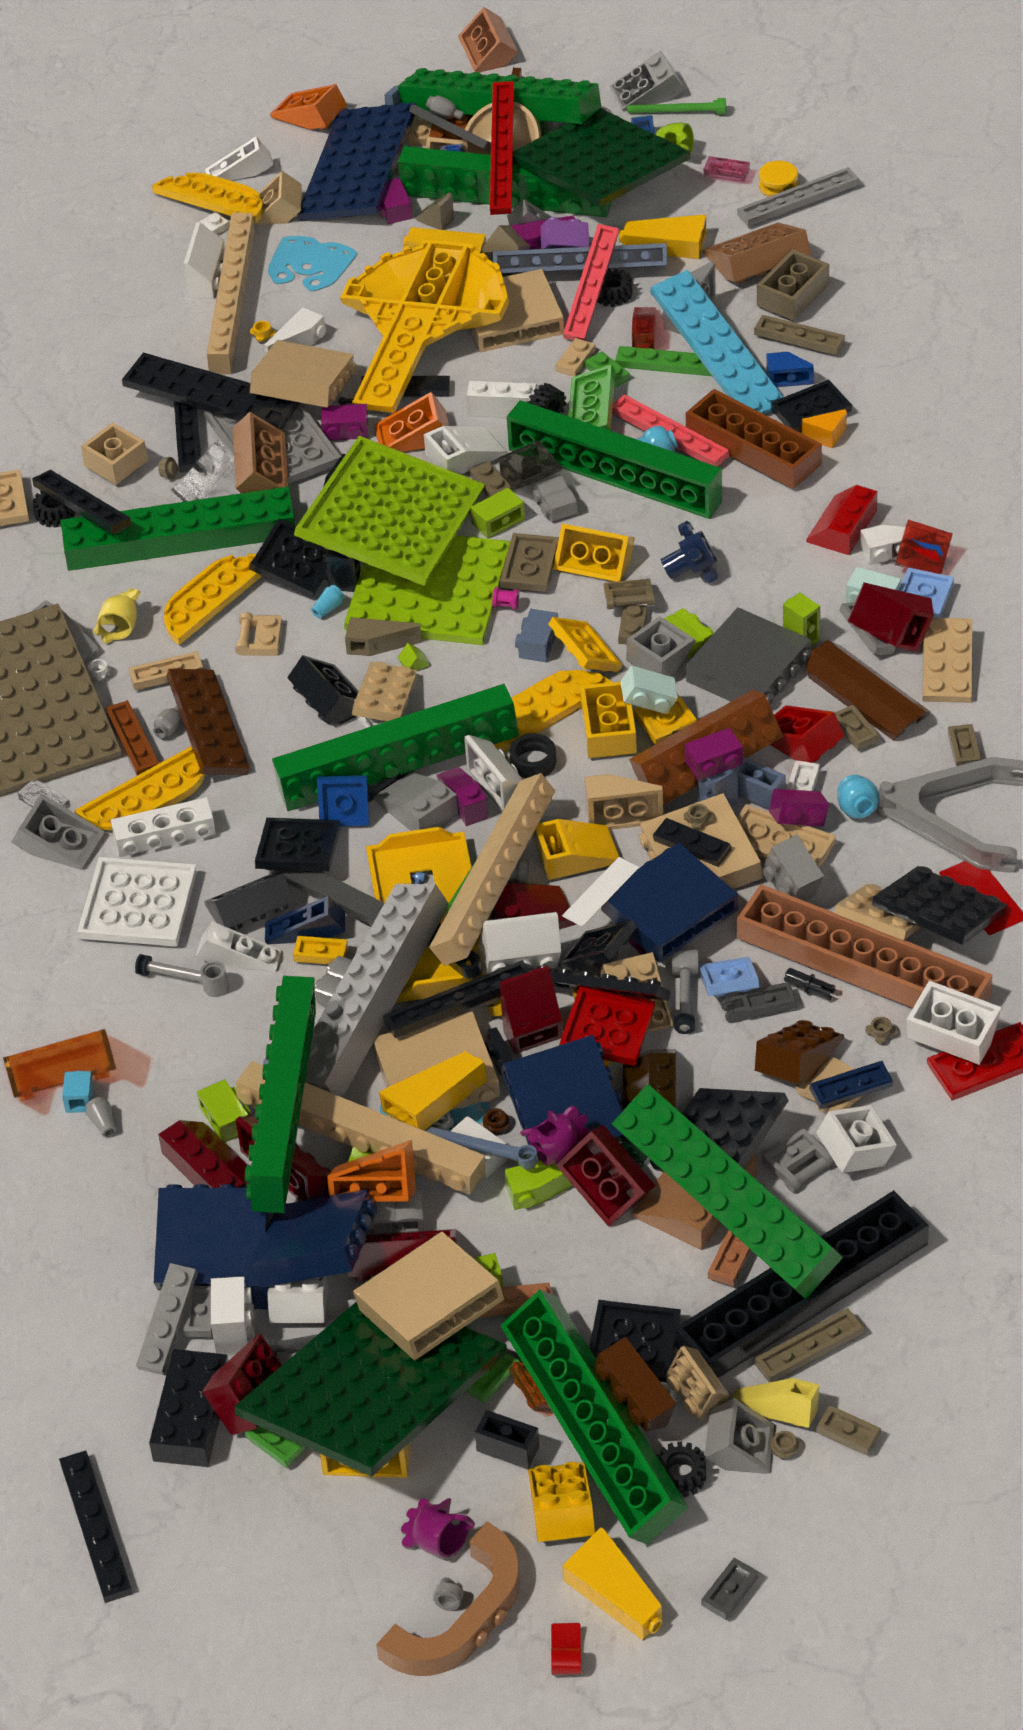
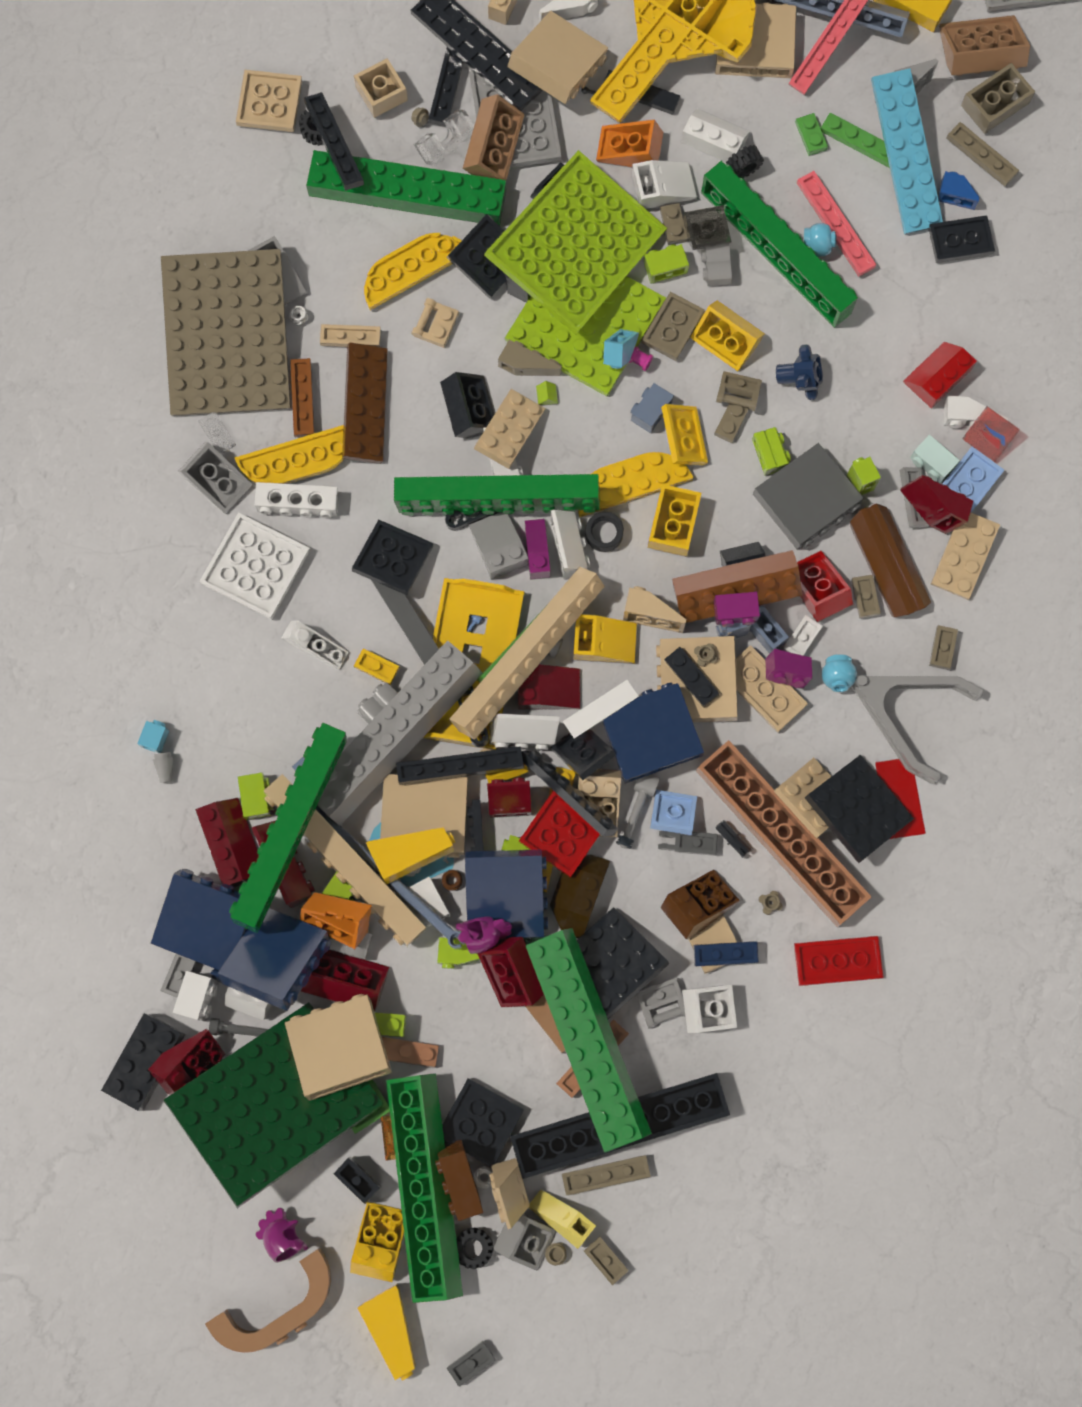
camera: 15 degrees right, 30 degrees up
(47, 1065) = (142, 702): clear orange windscreen -> none
(95, 1526) = (47, 1134): black plate -> none
(117, 611) = (332, 263): light yellow piece -> none
(167, 722) = (333, 391): light grey plant -> none
(167, 1319) = (150, 977): light grey plate -> none
(211, 974) = (241, 631): light grey piece -> none
(250, 901) = (338, 598): black slope -> none
(318, 919) = (373, 638): dark blue slope -> none
(328, 601) = (499, 309): medium azure cone -> none
(344, 799) = (440, 529): blue plate -> none
(345, 421) = (577, 118): magenta brick -> none
(448, 1595) = (272, 1295): light grey tile -> none
(478, 588) = (619, 348): none -> medium azure slope
(566, 1649) = (338, 1369): red panel -> none
(574, 357) = (790, 110): tan plate -> none
(593, 397) = (784, 170): bright green plate -> none
(622, 290) = (855, 52): black tyre -> none
(644, 327) = (857, 98): clear red slope -> none
(649, 690) = (714, 510): light aqua brick -> none
(659, 647) = (741, 461): light grey slope -> none
(660, 725) = (720, 530): yellow plate -> none
(755, 438) = (900, 261): dark orange brick -> none
(792, 869) = (757, 735): light grey brick -> none
(825, 427) = (963, 268): light orange slope -> none
(953, 1022) = (825, 929): white slope -> none

